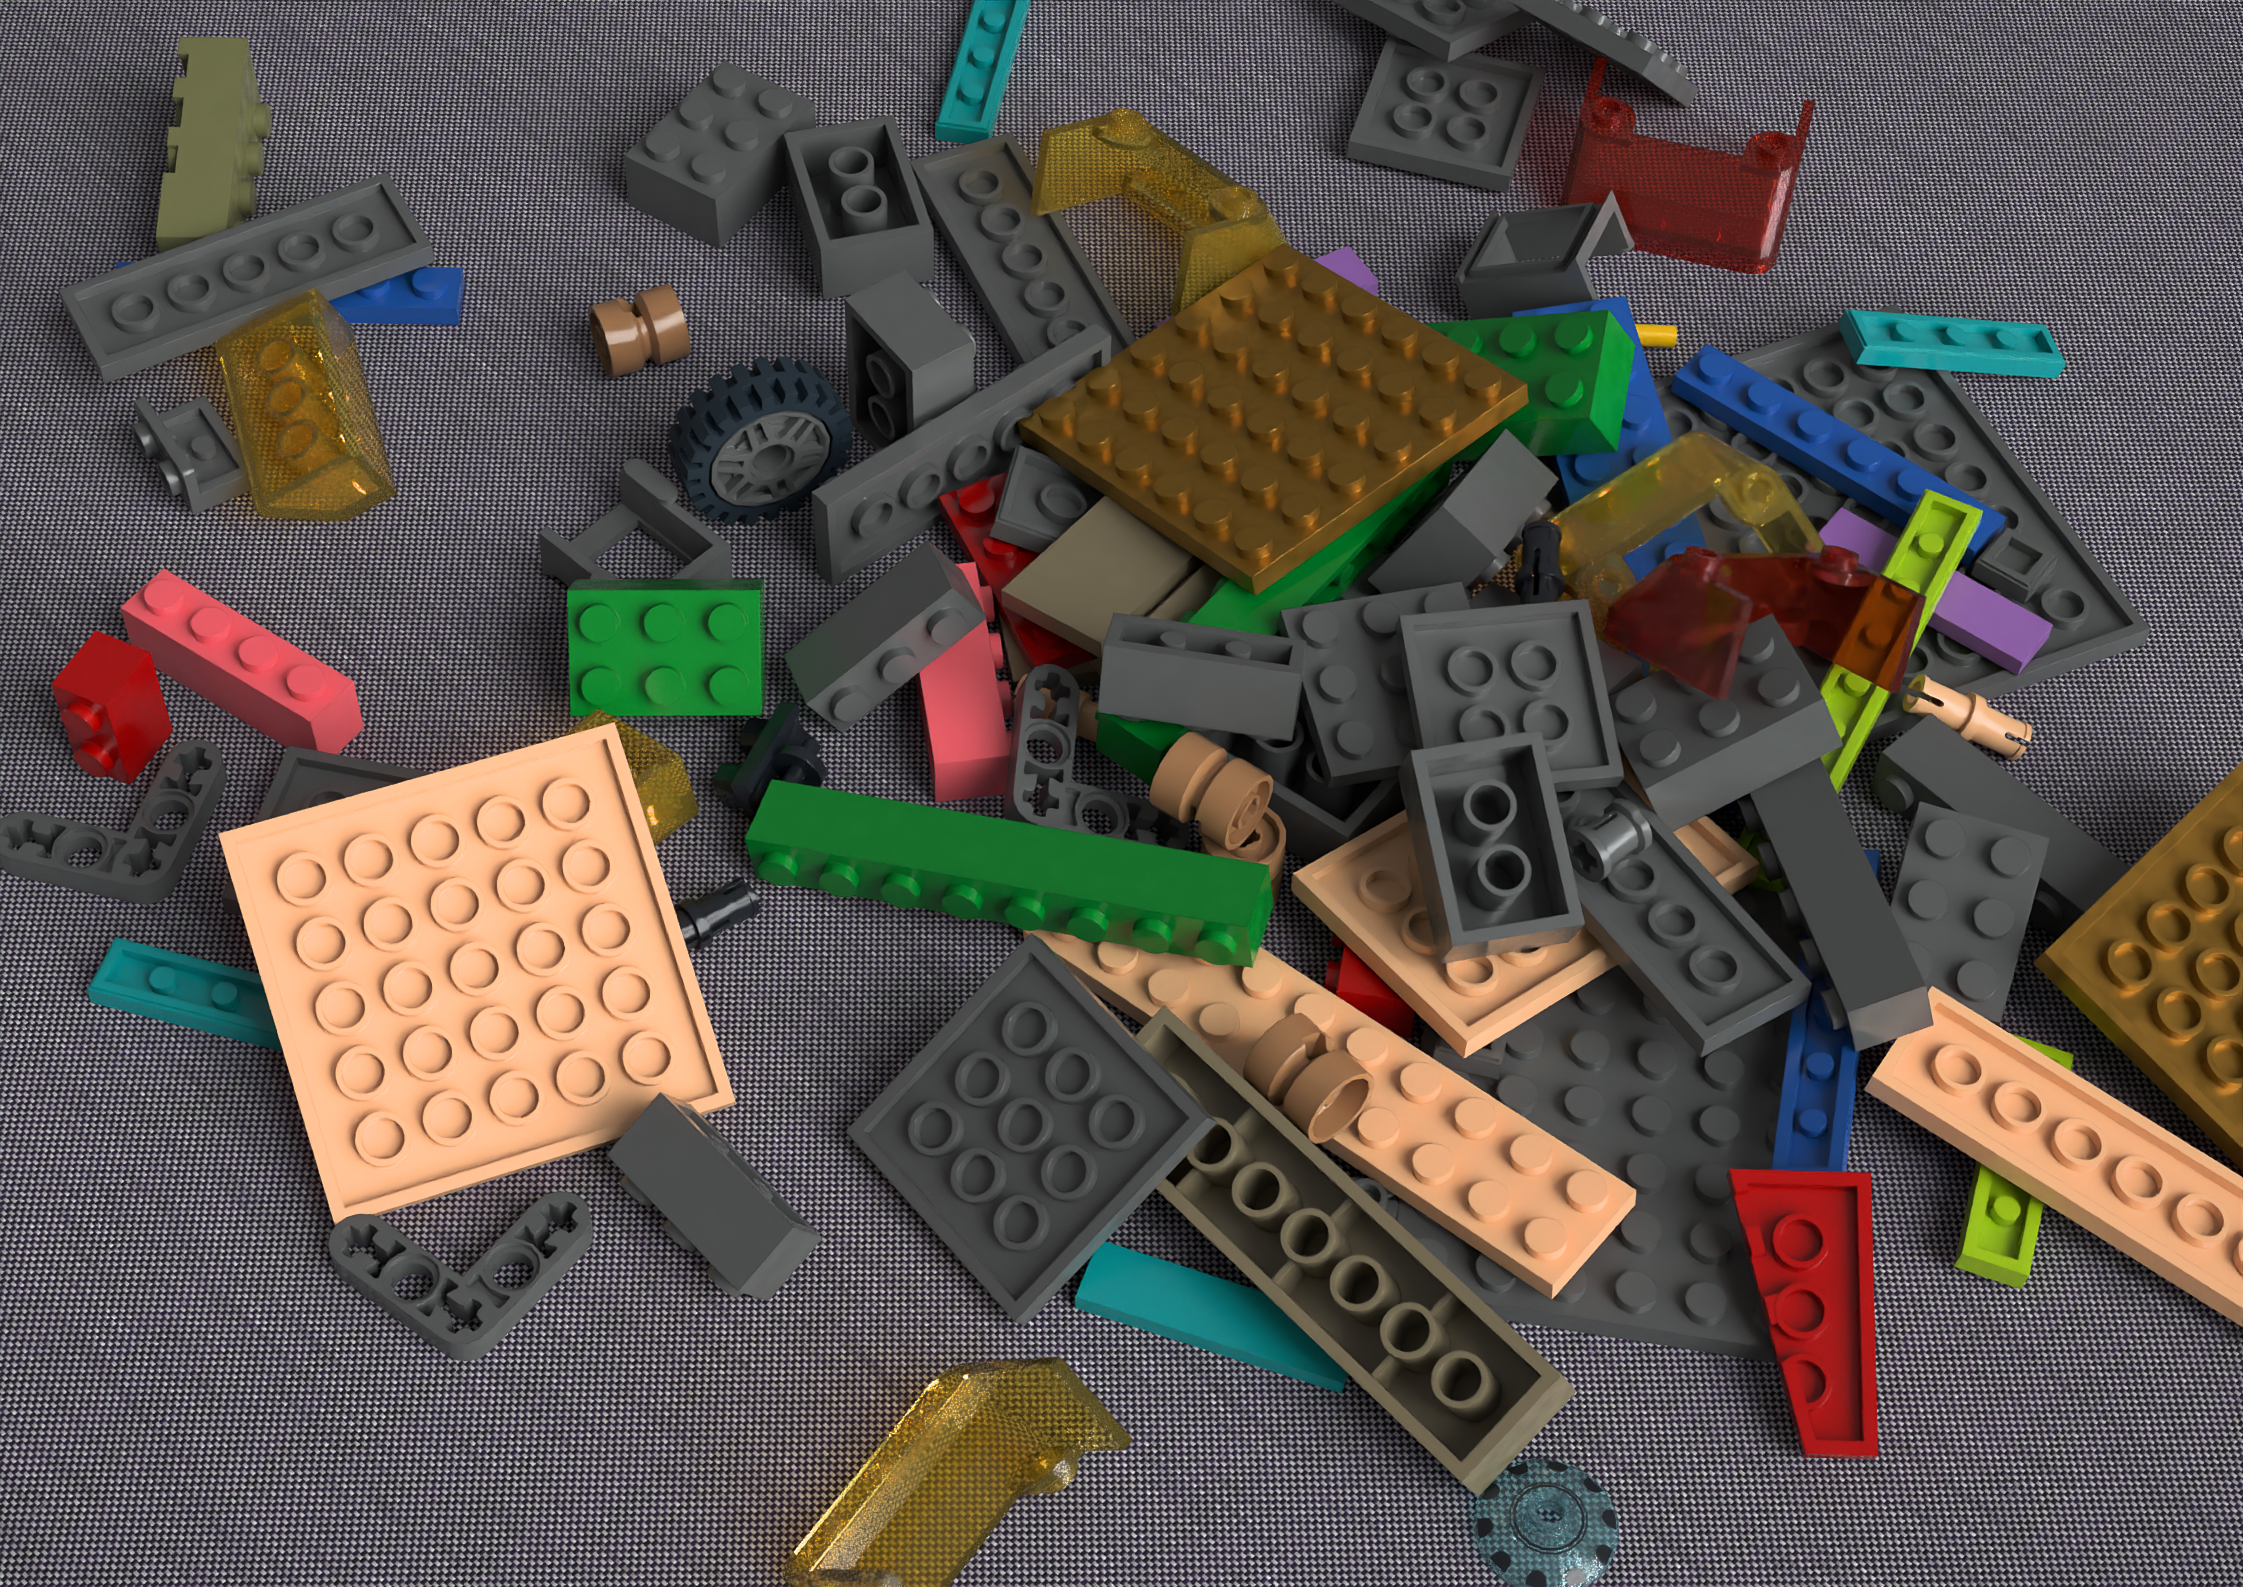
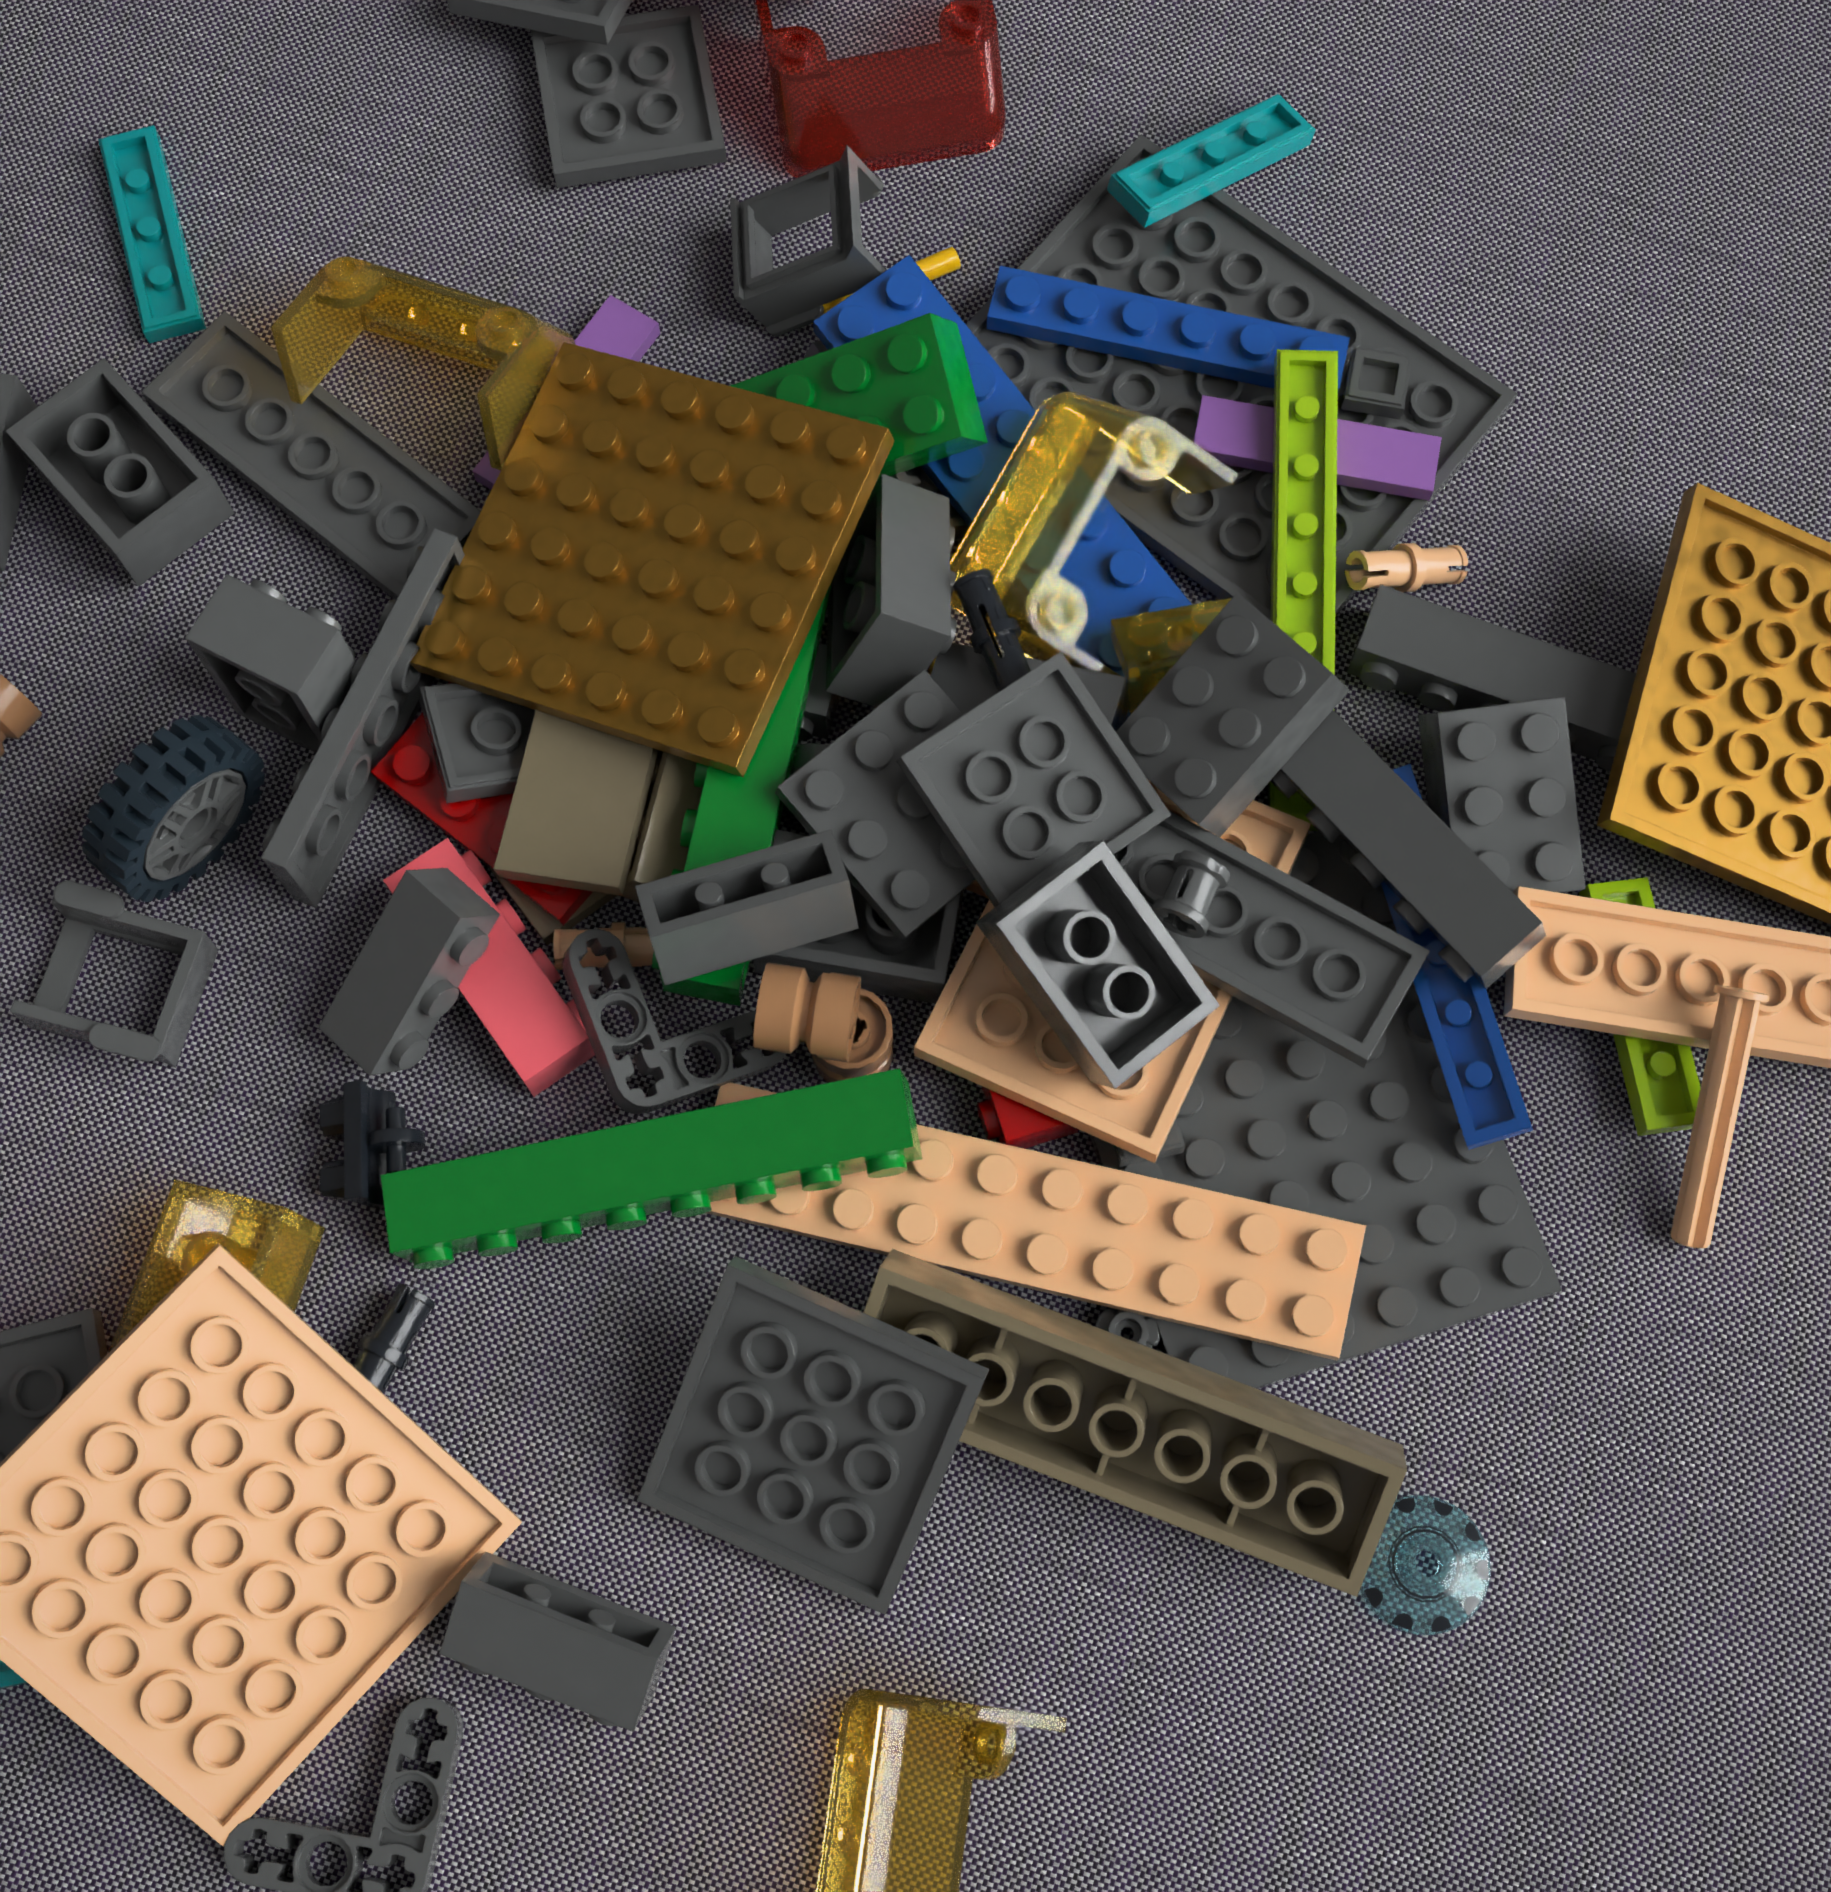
camera: 25 degrees left, 20 degrees up
(667, 647) = (204, 1081): green brick -> none
(1203, 1314) = (1021, 1514): teal tile -> none
(1315, 1083) = (1038, 1268): medium nougat wheel -> none
(1698, 604) = (1153, 625): clear red windscreen -> none
(1816, 1289) = (1553, 1237): red wing -> none
(2034, 1260) = (1716, 1115): none -> light nougat axle

